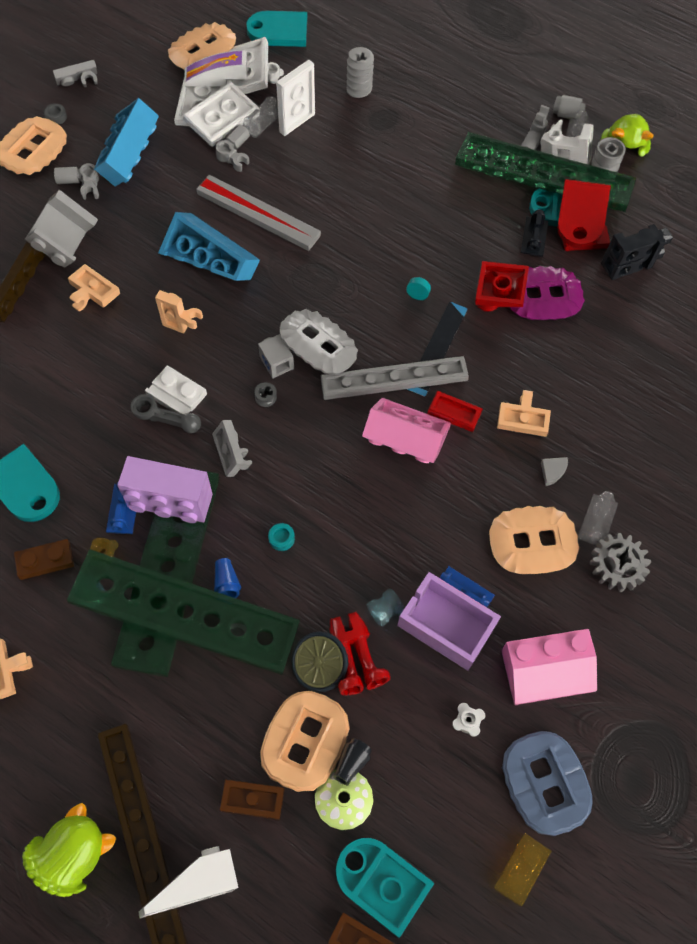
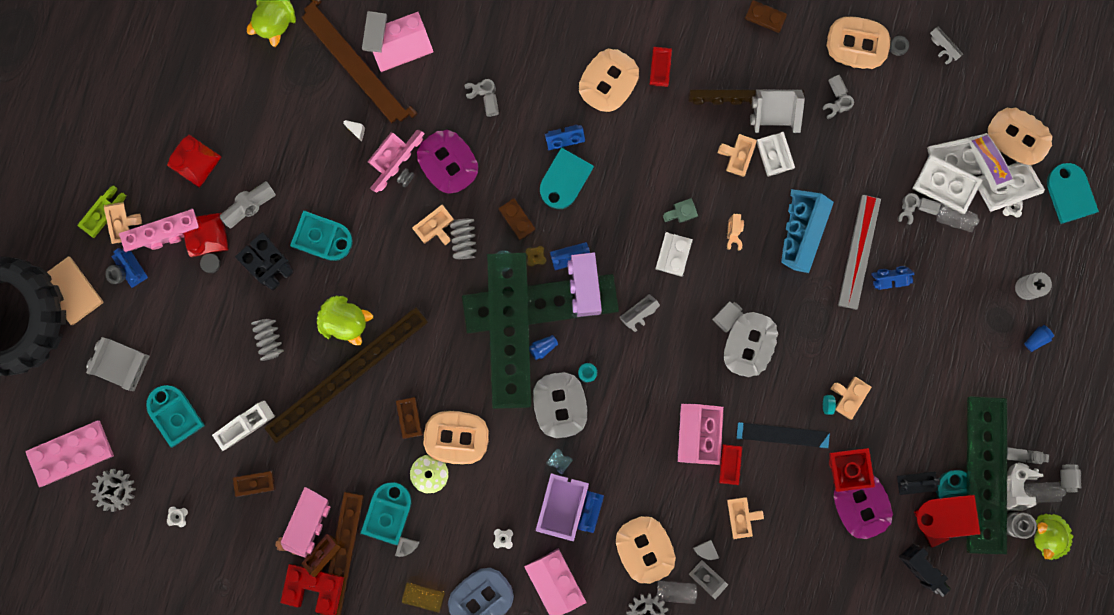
camera: 70 degrees right, 20 degrees up
(34, 636) = (462, 238): none -> light grey piece
(110, 253) = (775, 154): none -> white plate
(126, 142) = (887, 119): dark azure wedge -> none
(127, 366) = (683, 211): none -> sand green plate
(189, 423) = (651, 275): dark grey piece -> none
(203, 879) = (350, 402): white slope -> none
(261, 389) = (691, 324): dark grey bush -> none
(296, 97) = (977, 244): white tile -> none
(301, 182) = (900, 276): none -> blue hinge
(308, 602) = (574, 402): none -> light grey piece
(319, 661) = (508, 429): olive wheel -> none
(353, 759) = (453, 472): black cone -> none
(358, 638) = (526, 440): red piece -> none
(394, 377) = (743, 412): light grey tile -> none
(414, 89) = (1040, 337): none -> blue cone
(416, 264) = (851, 396): none -> light nougat plate
(440, 870) = (406, 546): none -> light grey tile
(592, 475) = (708, 579): none -> light grey slope

